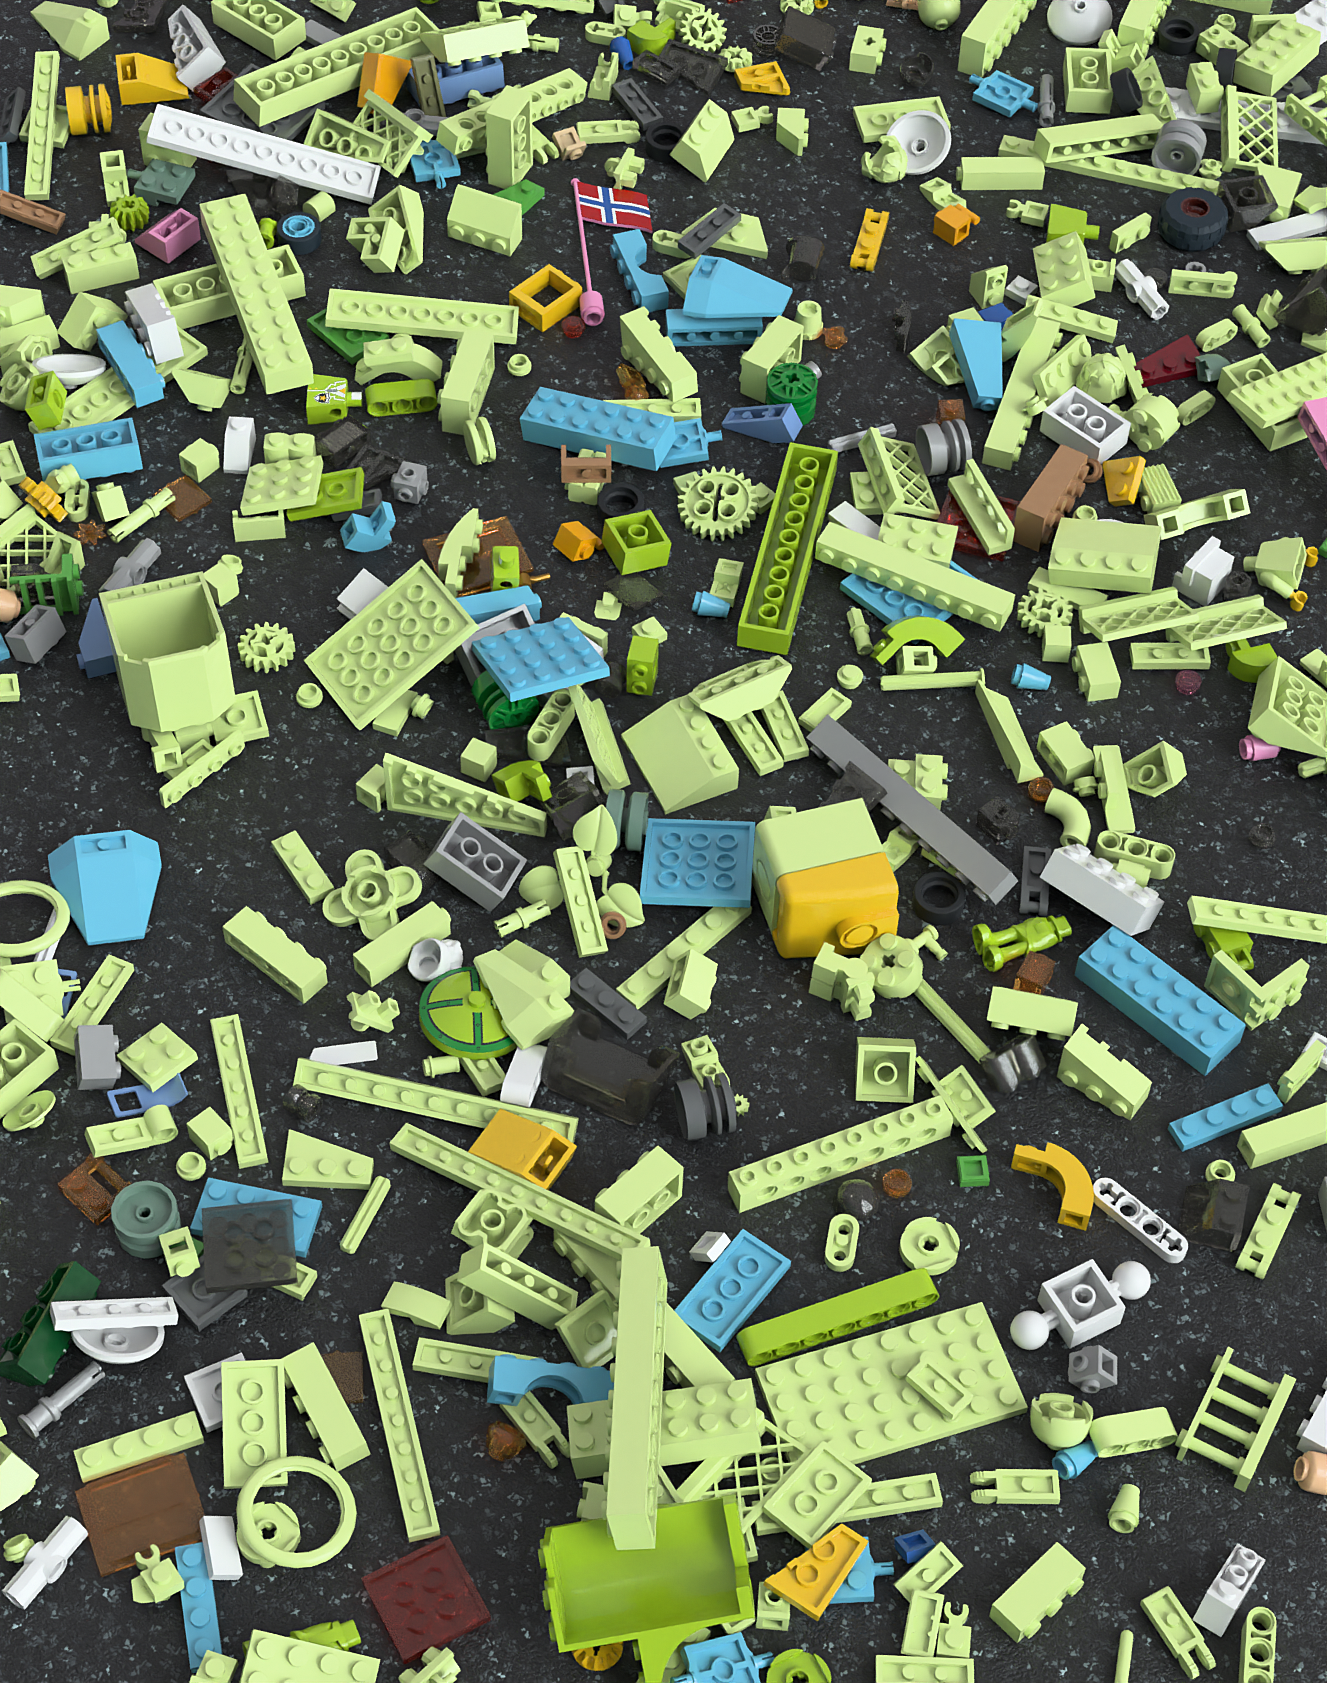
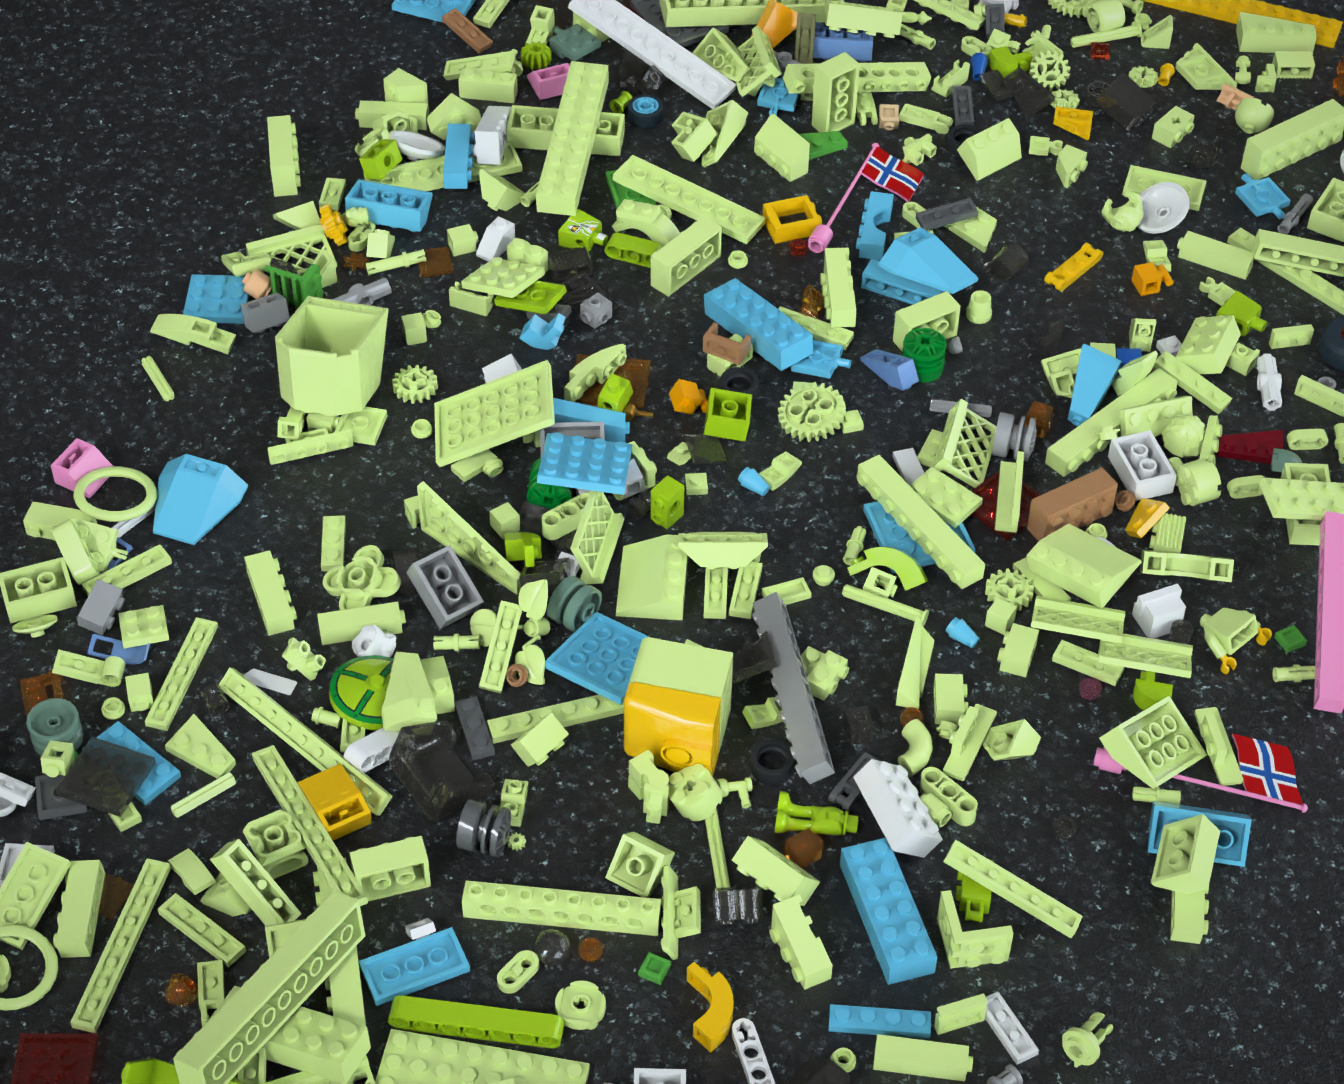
camera: 30 degrees right, 5 degrees down
(320, 206) = (674, 98): yellowish green brick -> none
(479, 440) = (665, 301): yellowish green head -> none
(514, 1377) = (212, 950): medium azure arch -> none
(787, 549) = (835, 464): lime brick -> none
(834, 337) = (993, 327): clear orange plate -> none

